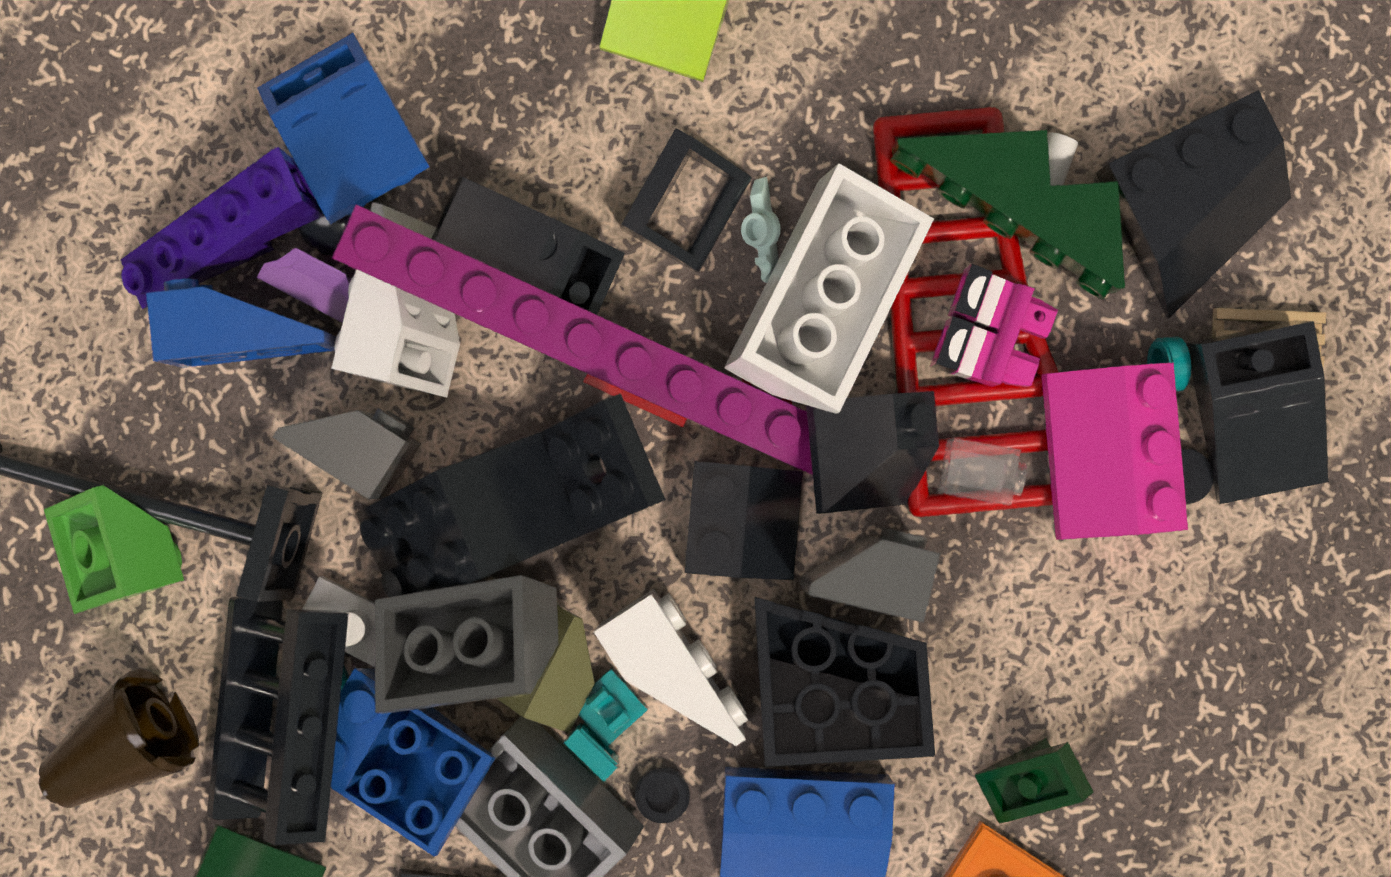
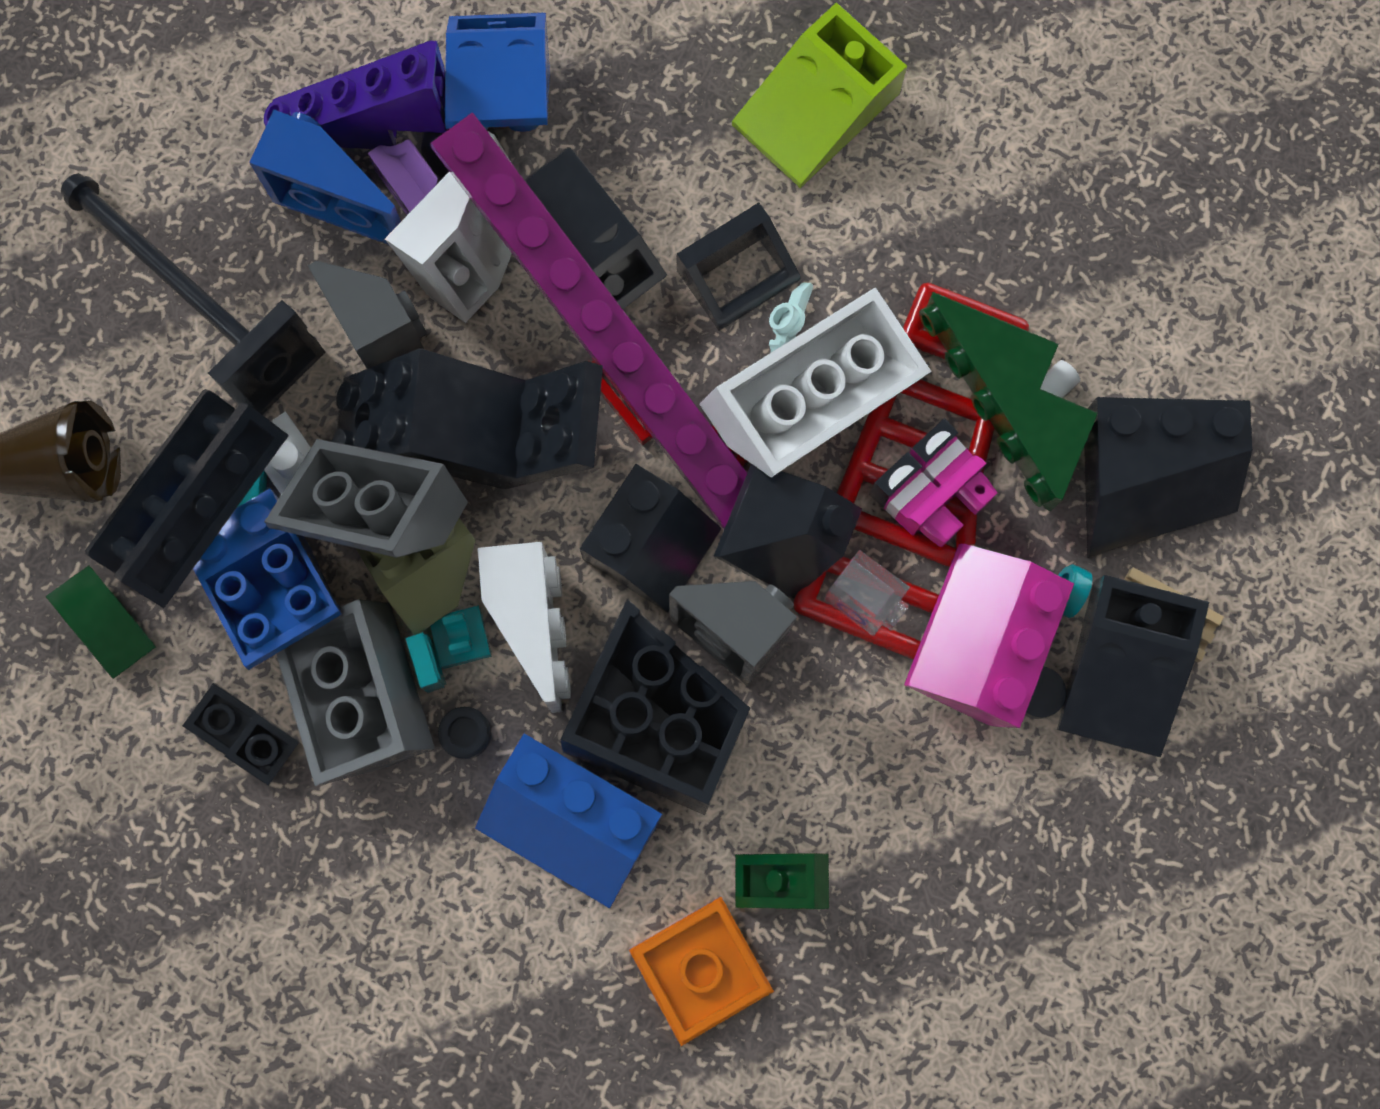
camera: 25 degrees right, 10 degrees down
(110, 549) = (135, 305): bright green slope -> none

